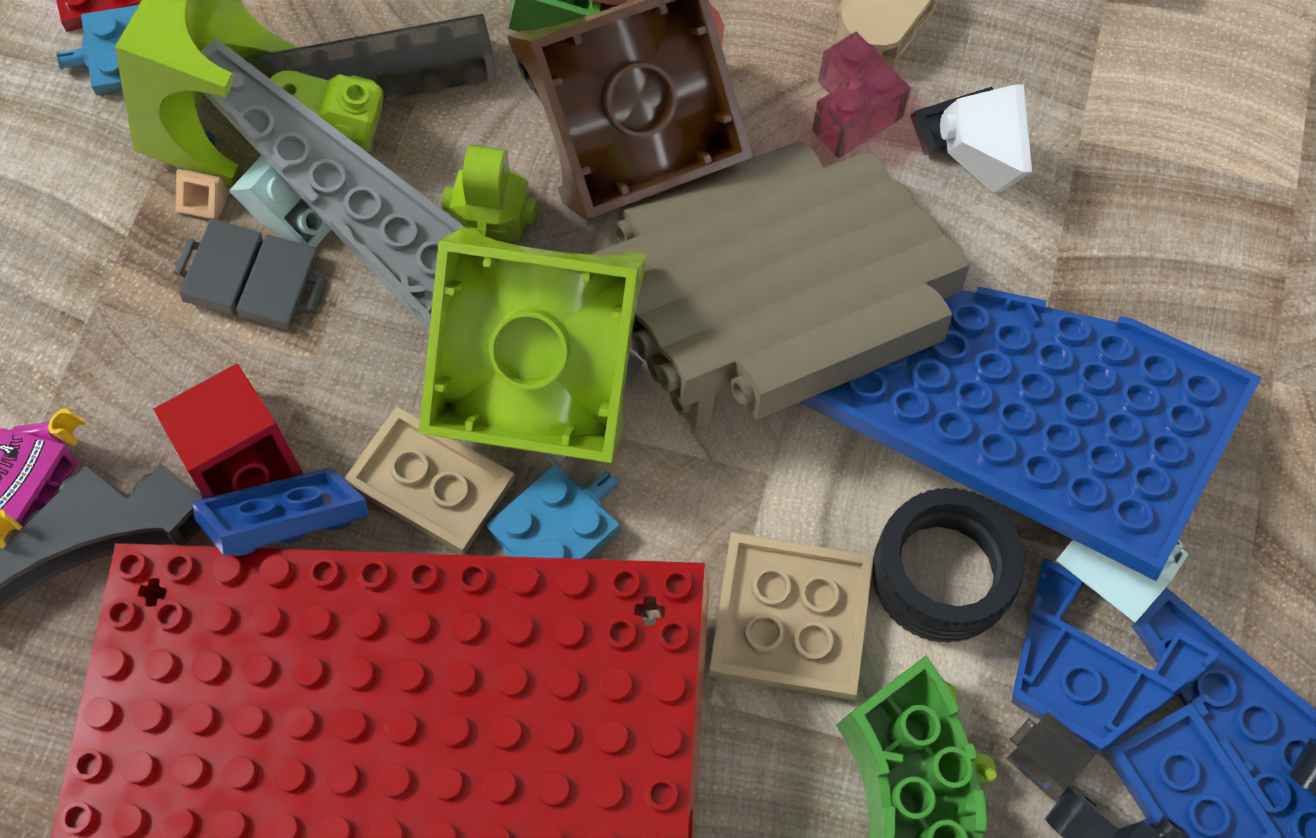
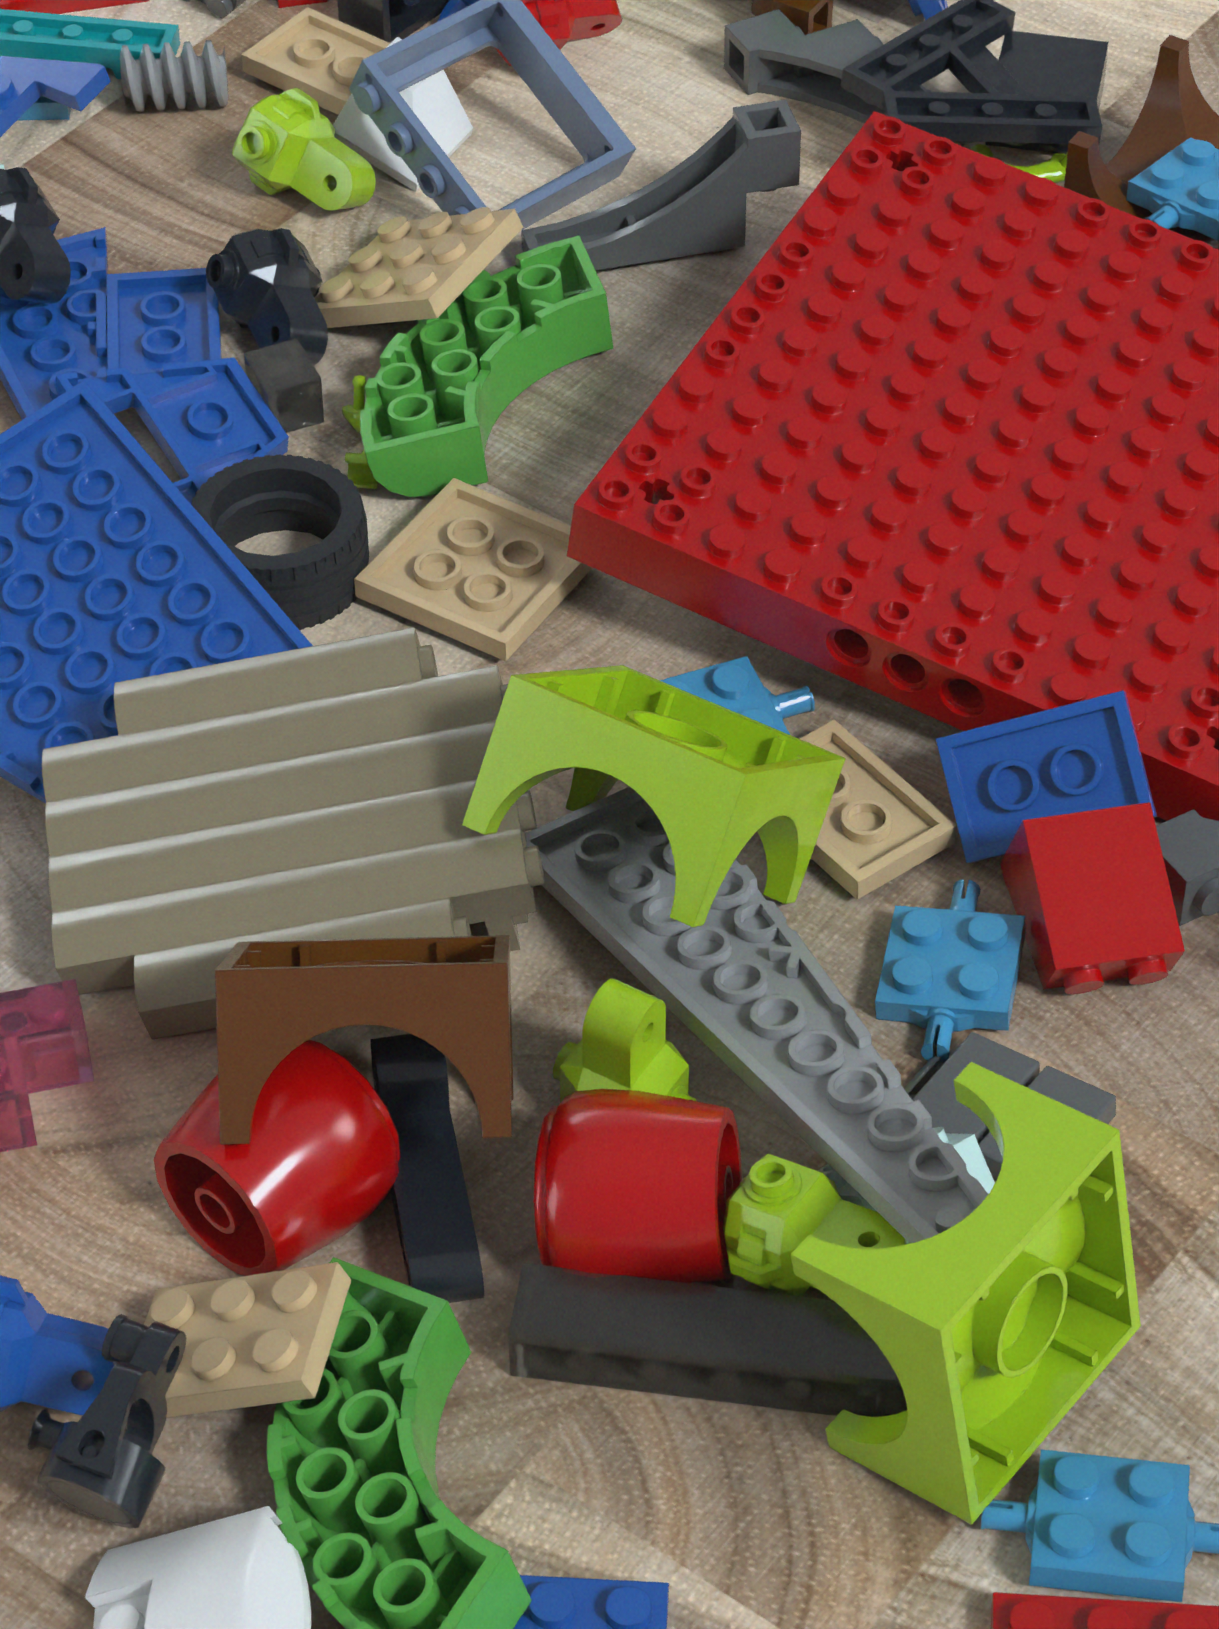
camera: 155 degrees left, 20 degrees down
(317, 376) = (950, 969): none -> dark azure plate
(441, 107) = (636, 1185): none -> red piece

